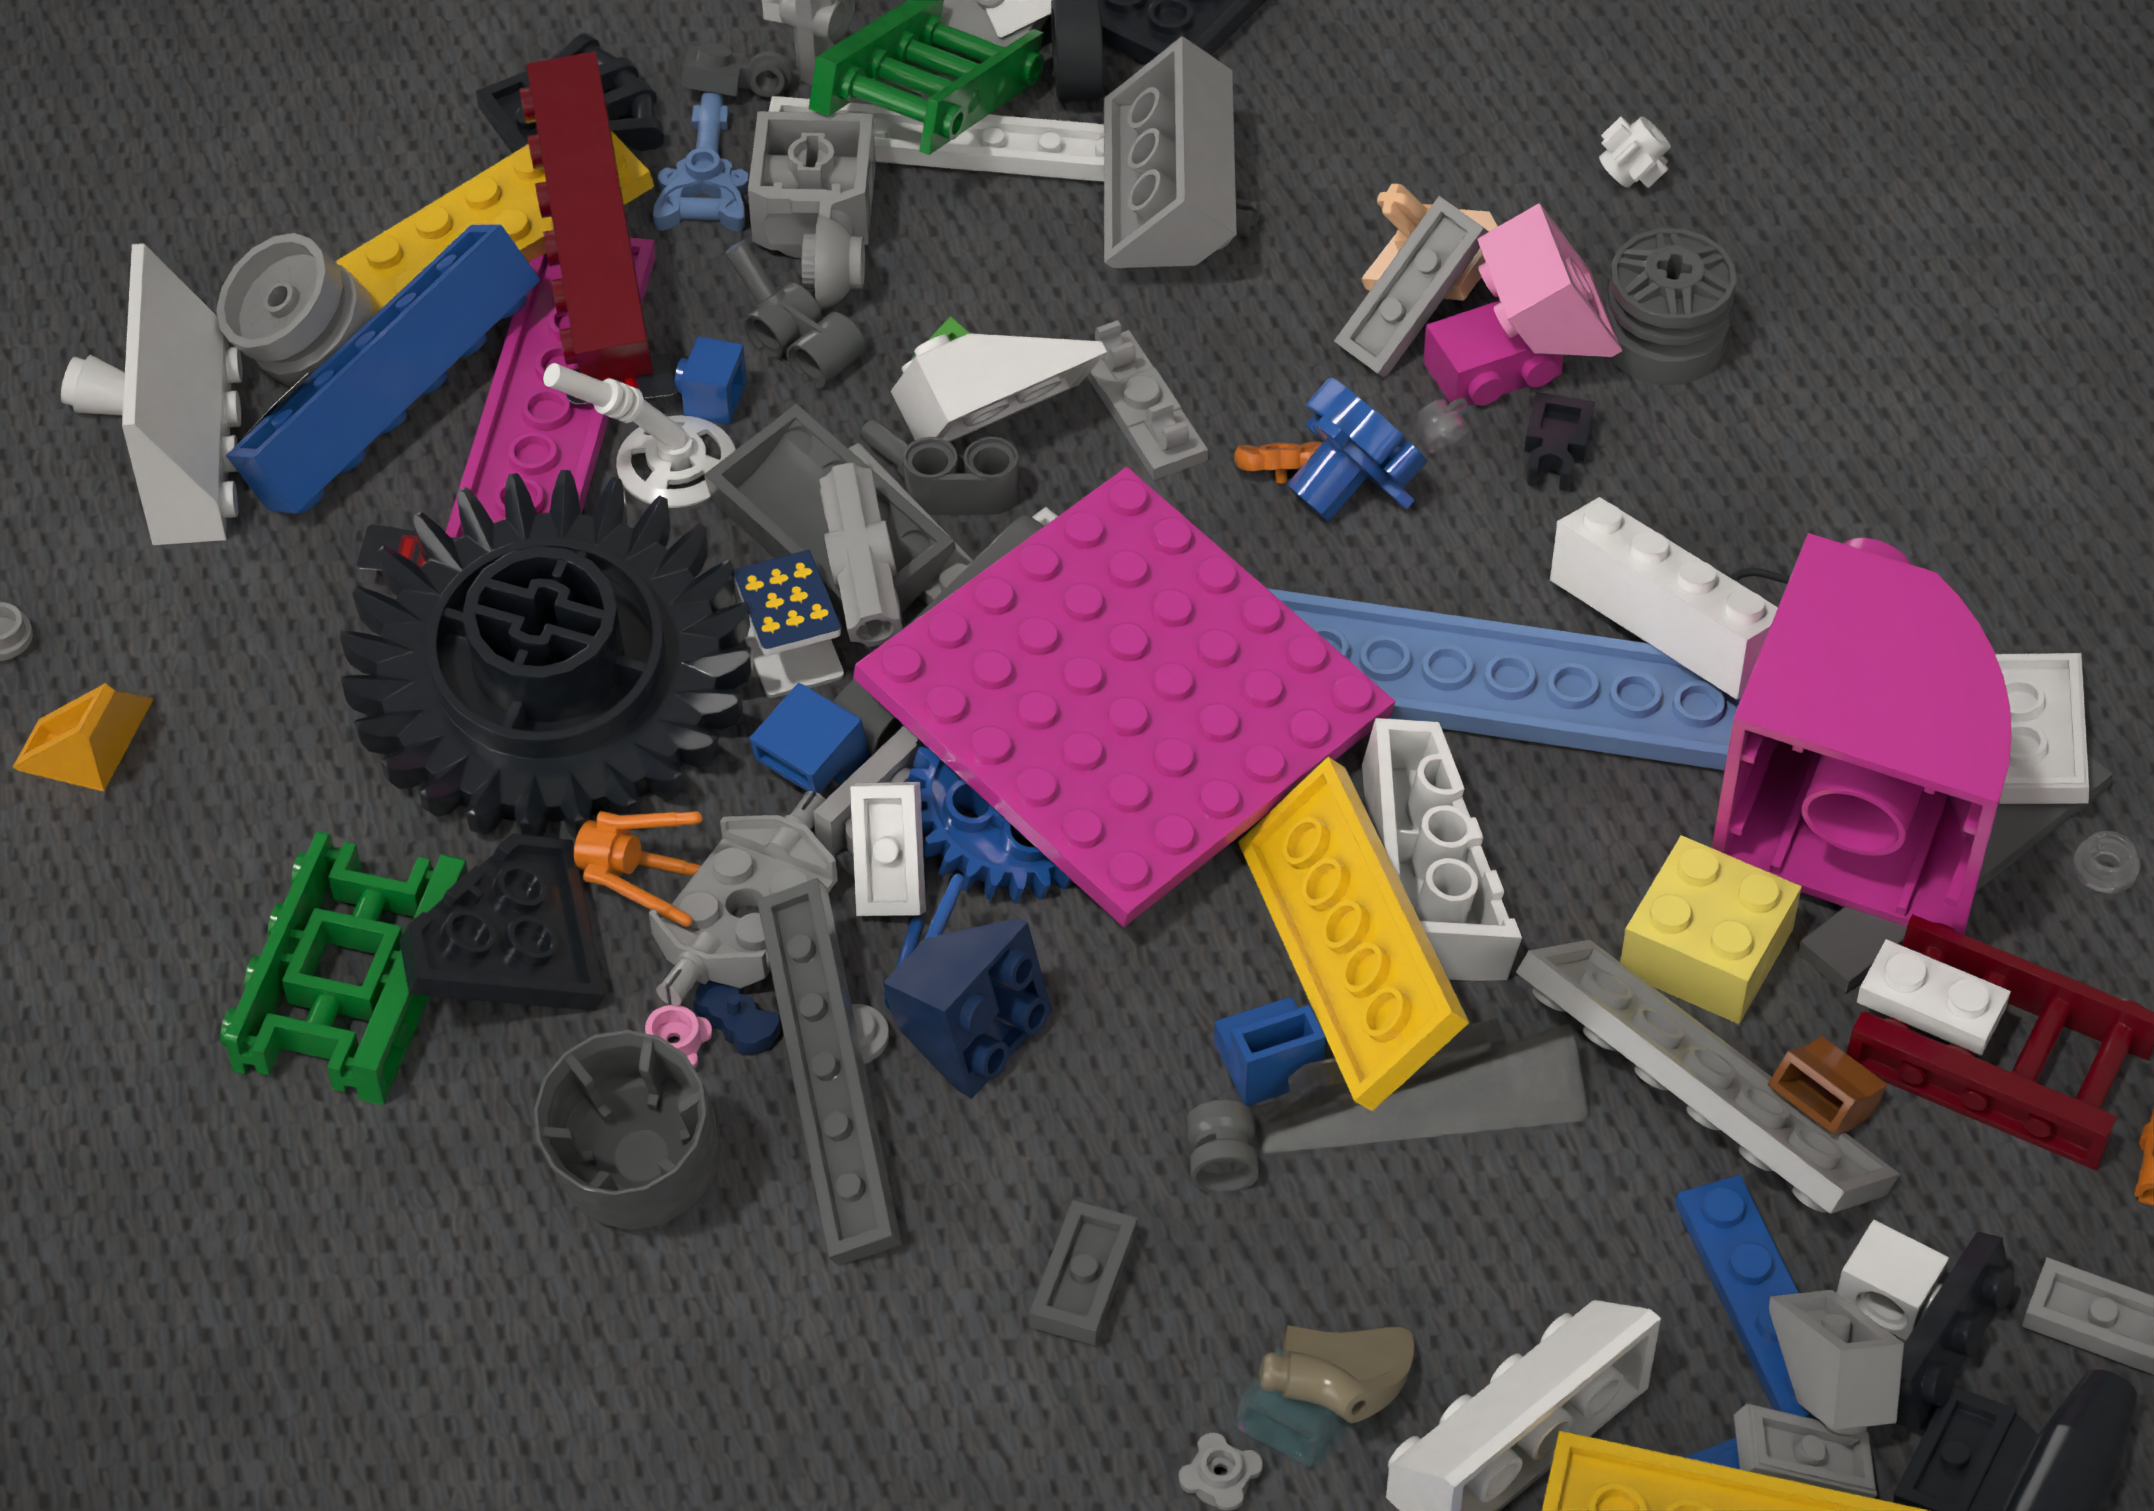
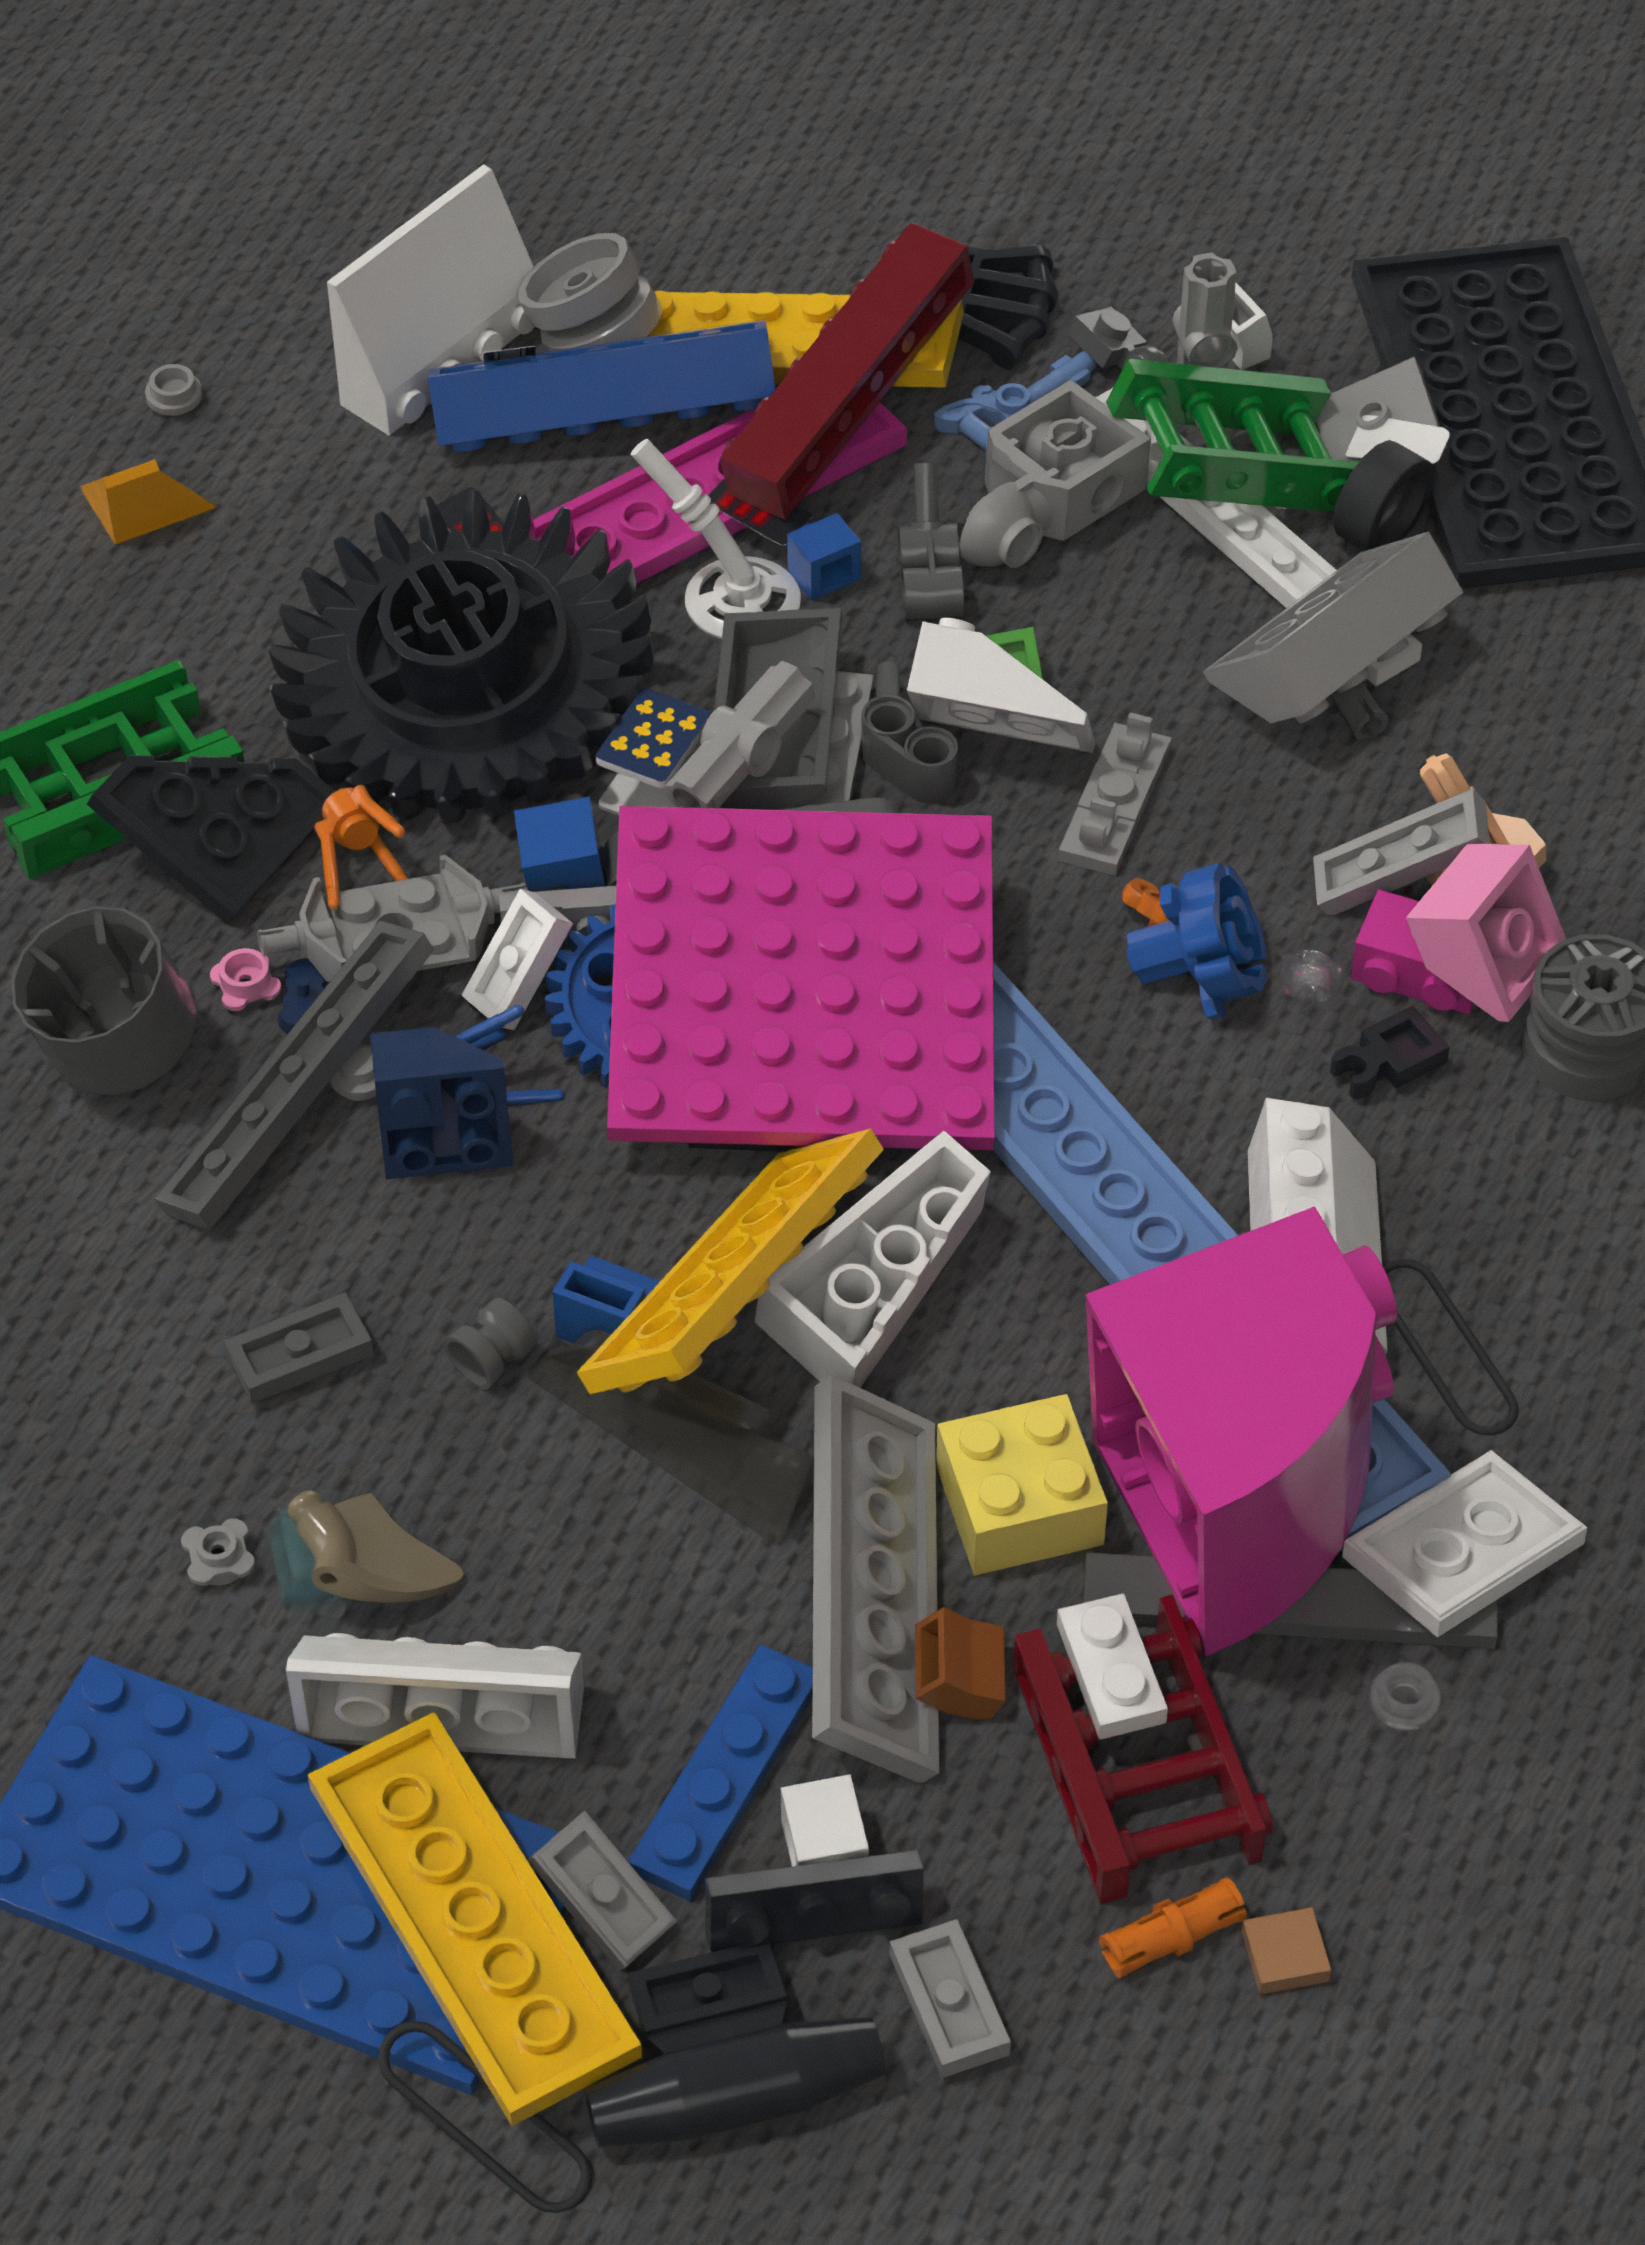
camera: 45 degrees right, 0 degrees up
(1838, 1360) = (687, 1839): light grey slope -> none

